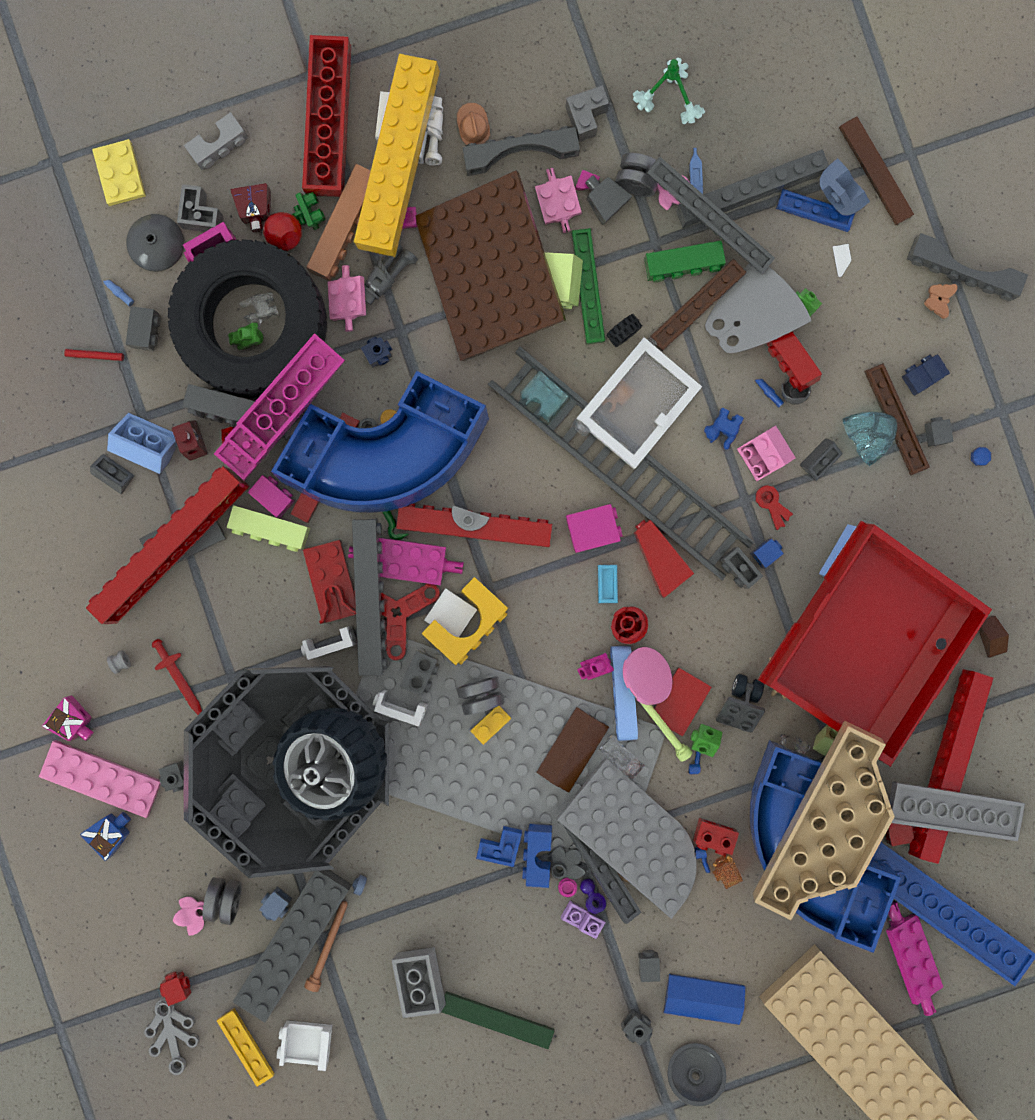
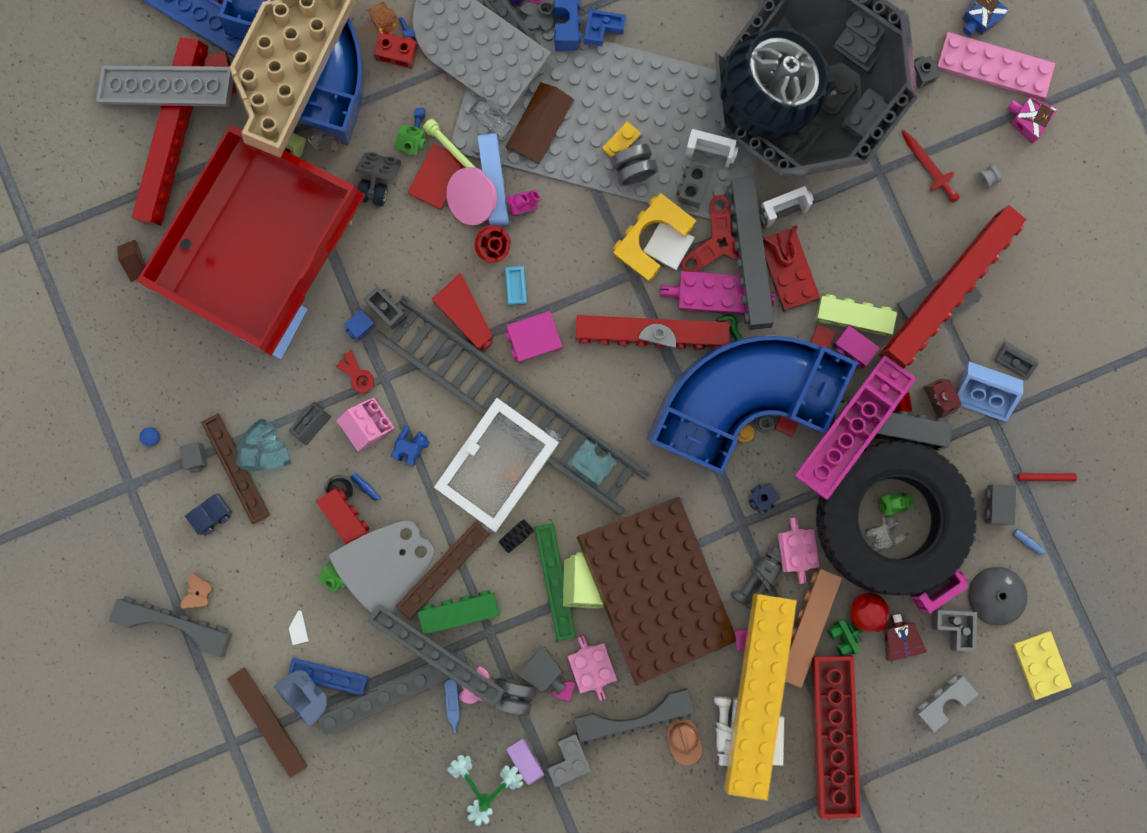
camera: 175 degrees right, 5 degrees down
(629, 114) = (525, 761): none -> lavender slope

